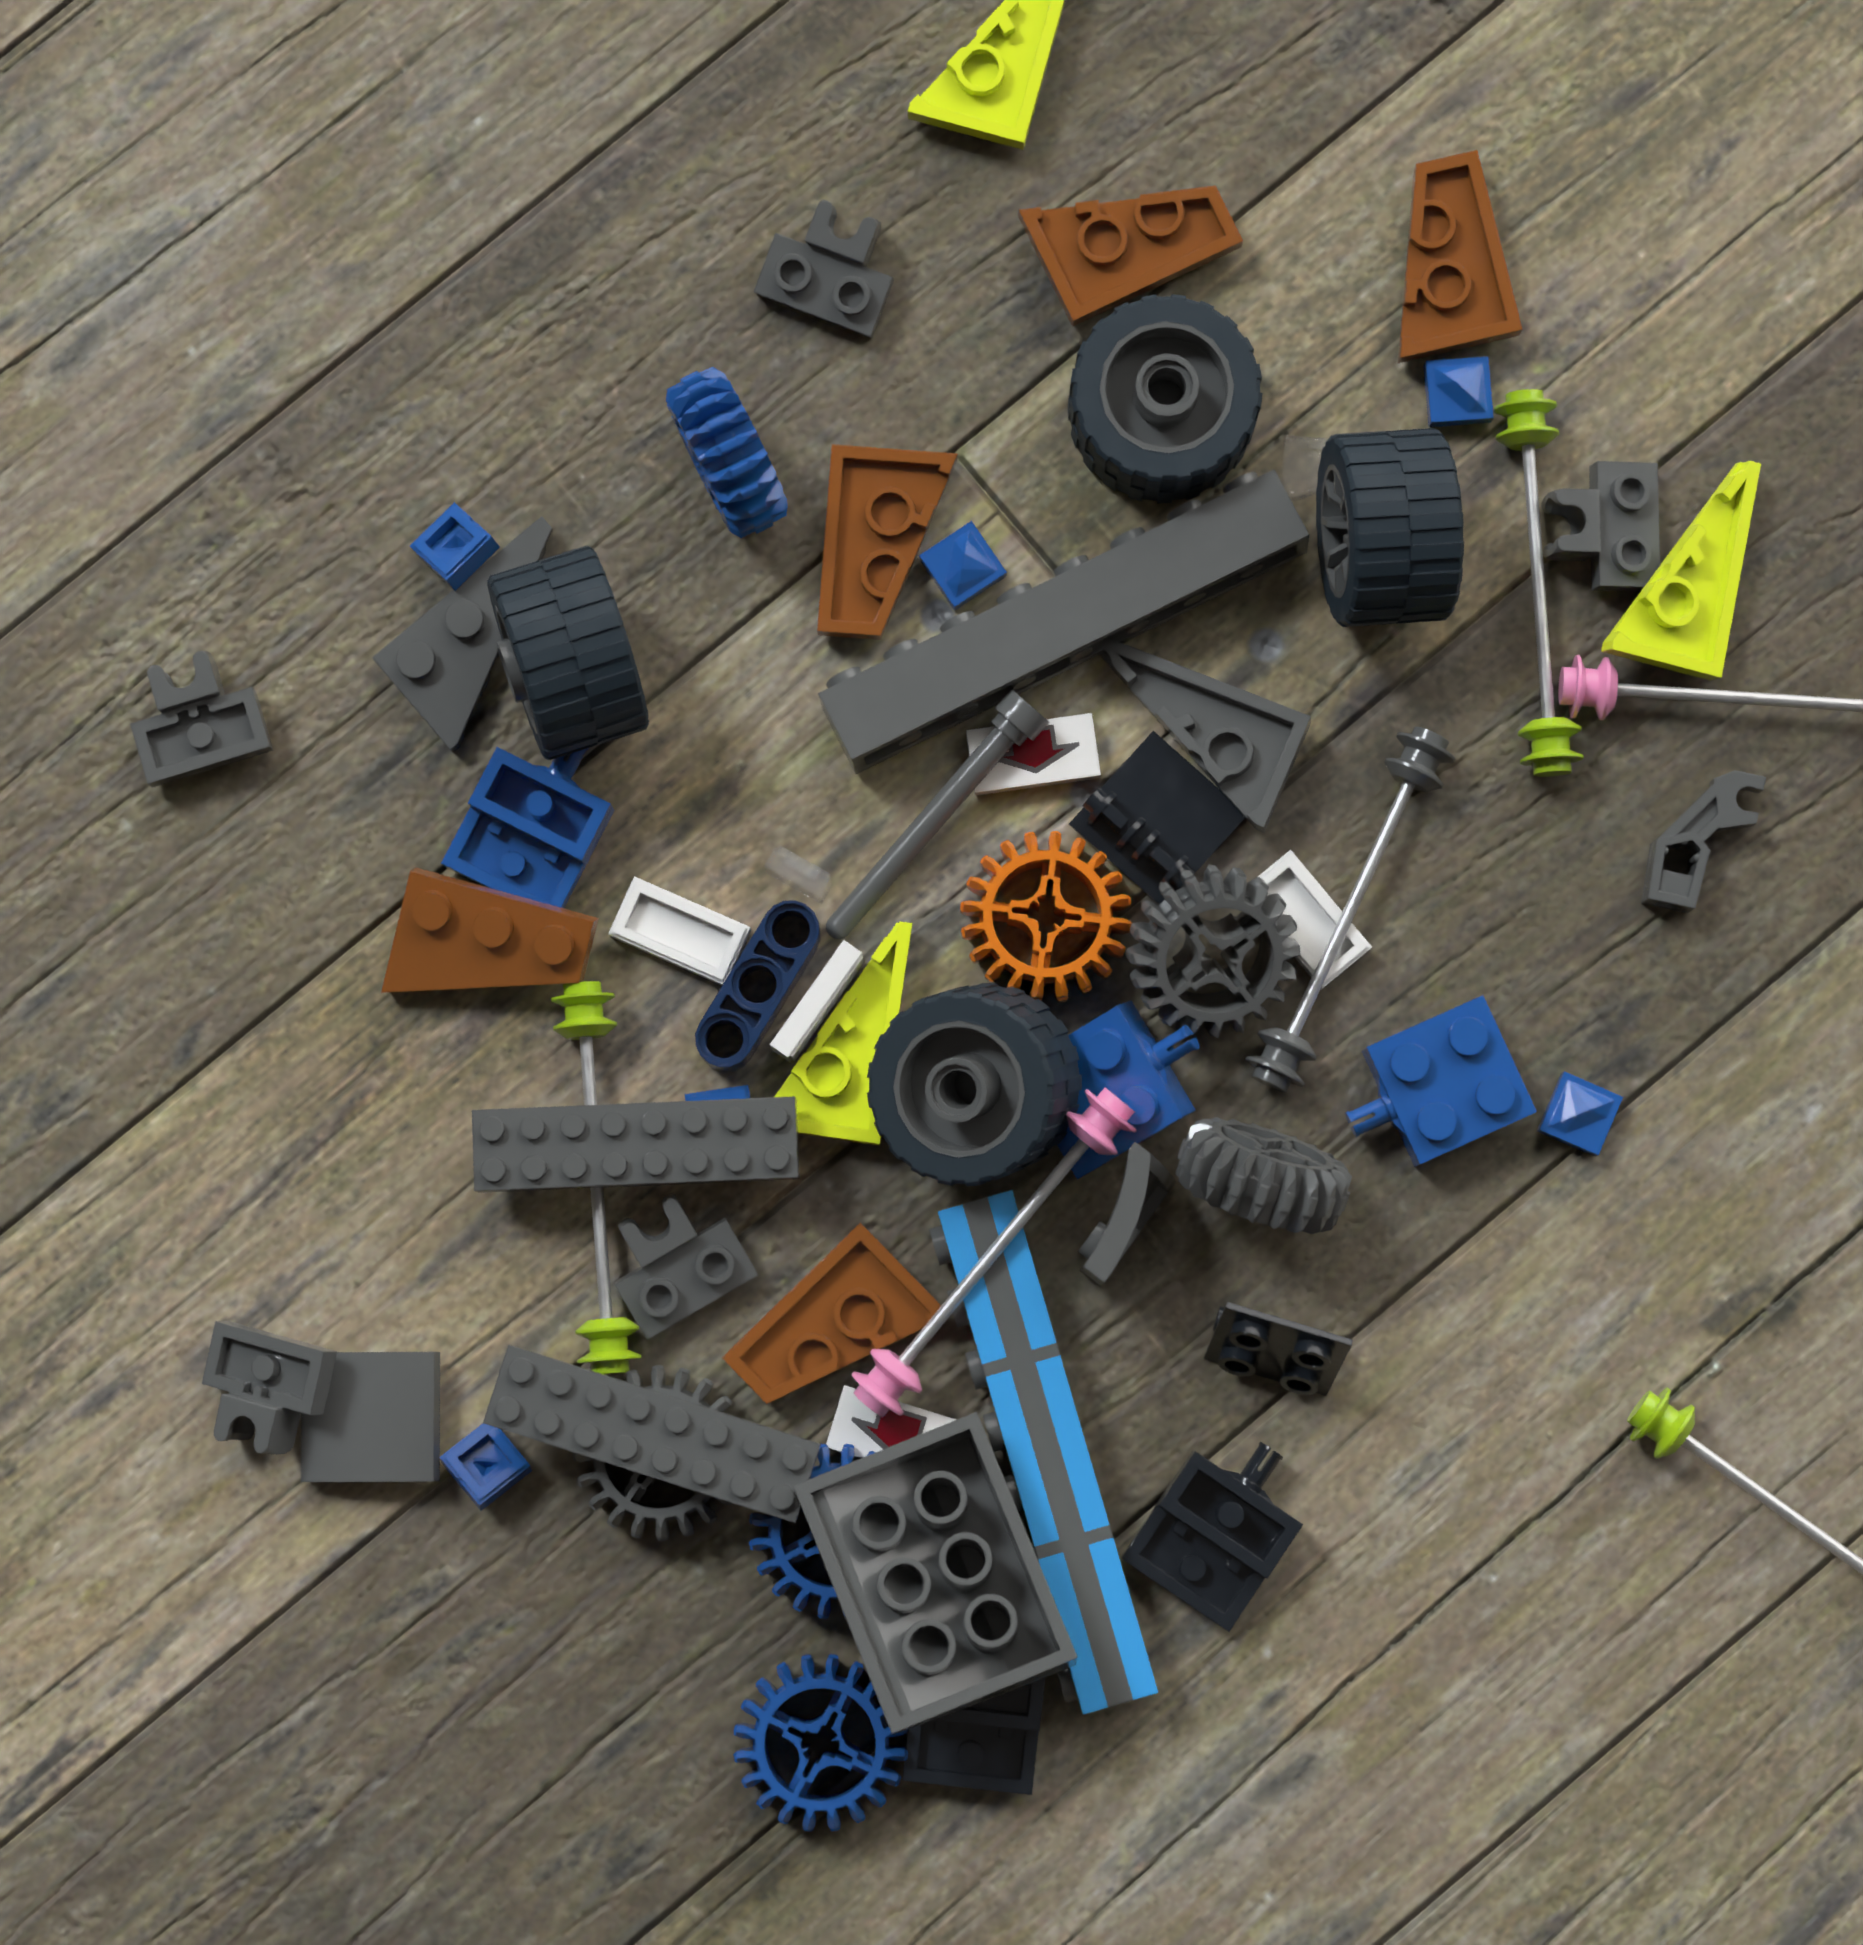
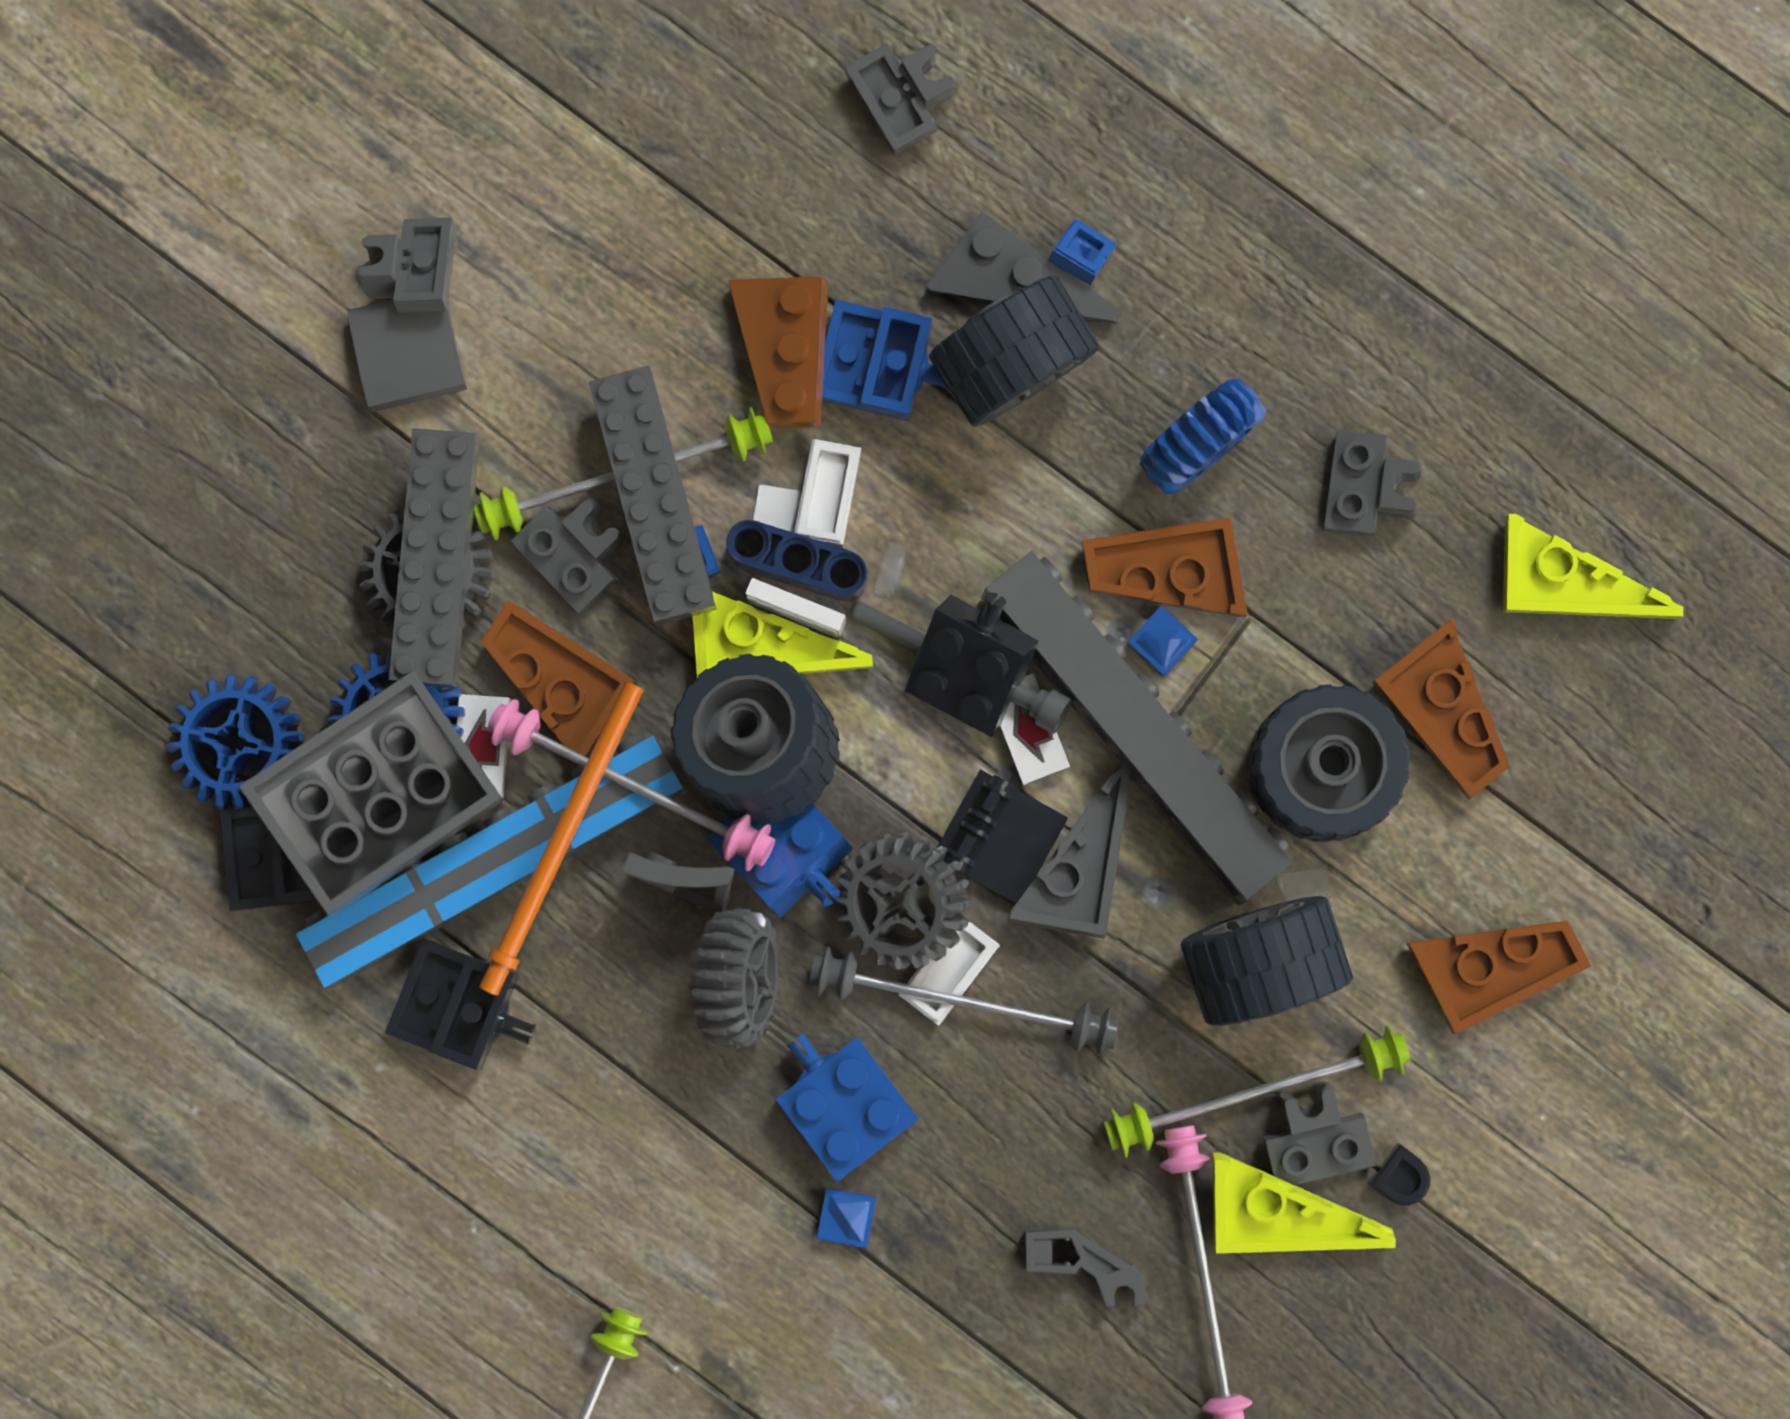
camera: 80 degrees right, 0 degrees up
(485, 1464) = (387, 443): blue tile -> none
(682, 999) = (777, 507): none -> white sticker
(939, 799) = (971, 662): none -> black plate
(1075, 918) = (897, 724): orange gear -> none
(1172, 1455) = (505, 955): none -> orange bar
(1276, 1349) = (604, 1040): black hinge -> none
(1458, 391) = (1395, 995): blue tile -> none
(1677, 437) = (1401, 1177): none -> black tile

